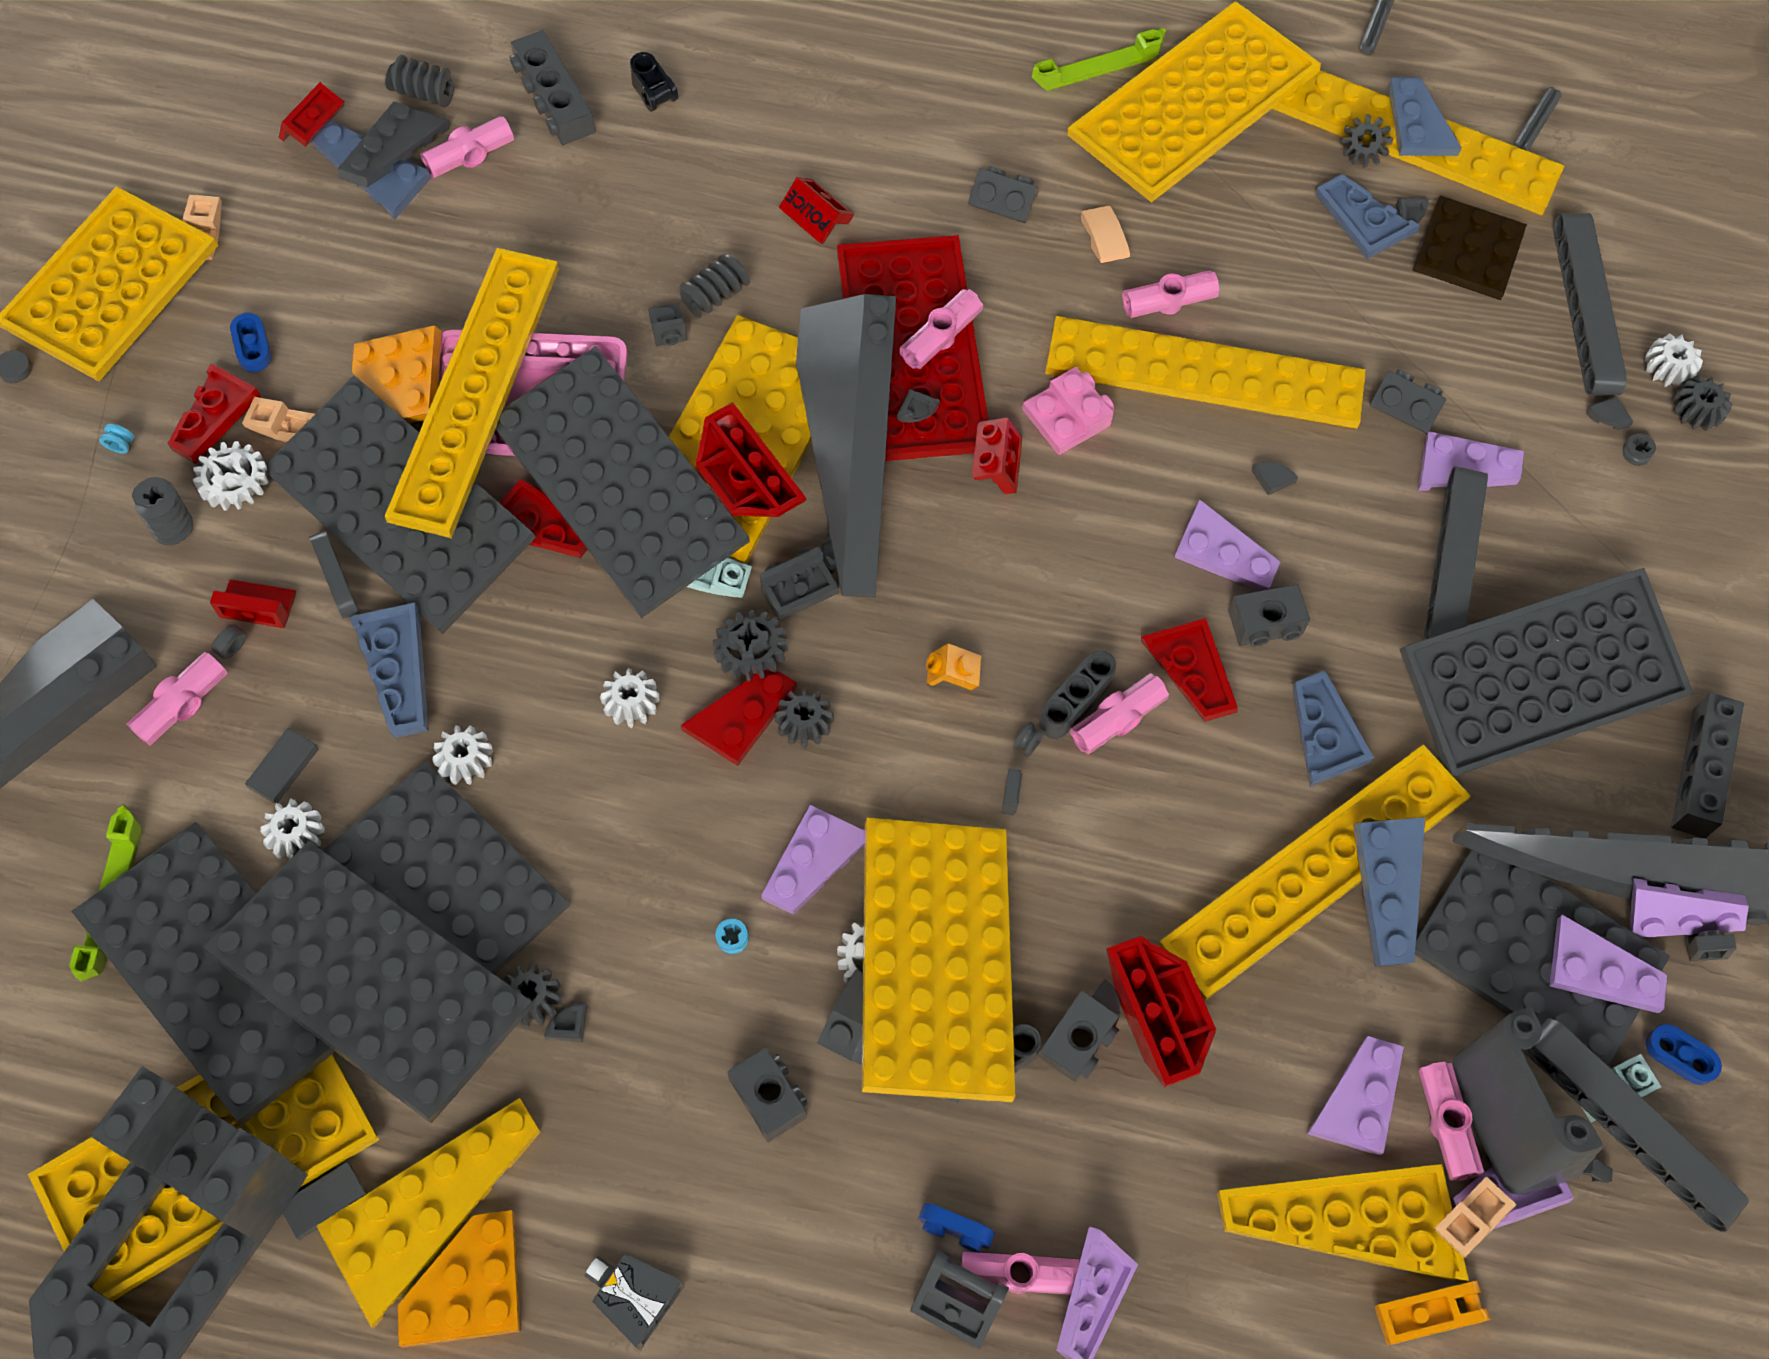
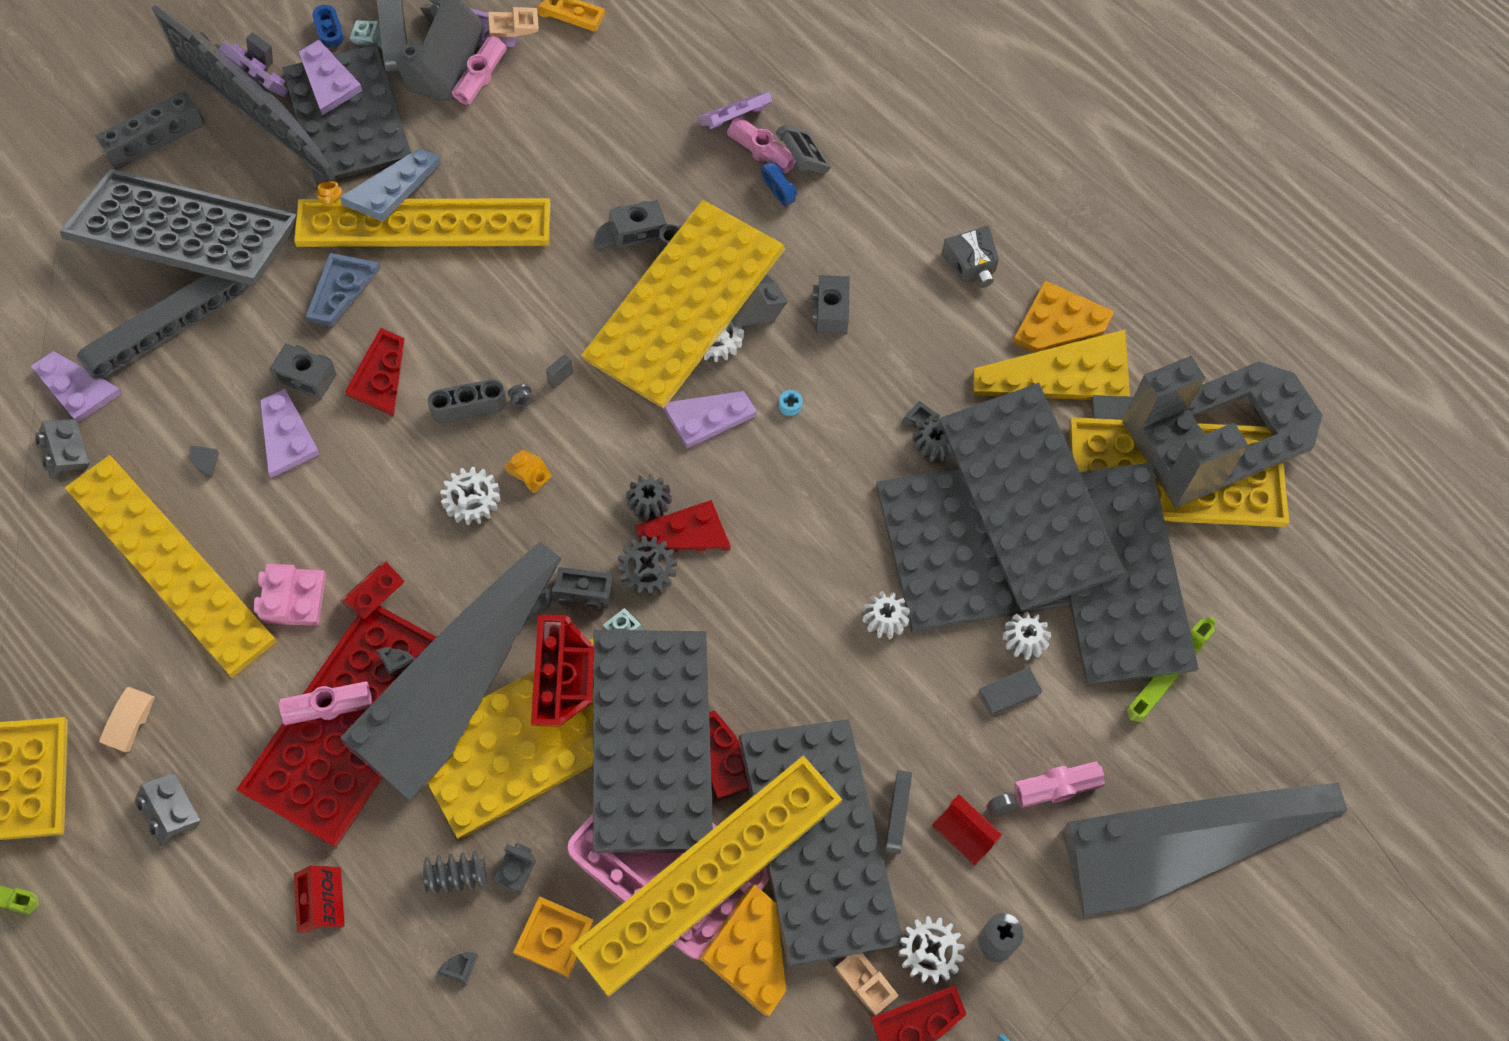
camera: 145 degrees left, 0 degrees up
(396, 665) = (891, 717): sand blue wing -> none
(590, 294) = (549, 936): none -> light orange plate
(633, 707) = (746, 590): white gear -> none
(656, 233) = (459, 967): none -> dark grey tile
(973, 607) = (470, 495): none -> white gear
(1119, 713) = (449, 373): bright pink piece -> none
(1162, 1009) = (582, 199): red wedge -> none
(1170, 293) = (119, 627): bright pink piece -> none
(1361, 1217) = (570, 67): yellow wing -> none
(1363, 1099) = (511, 110): lavender wing -> none
(1452, 822) = (328, 191): none -> light orange plate

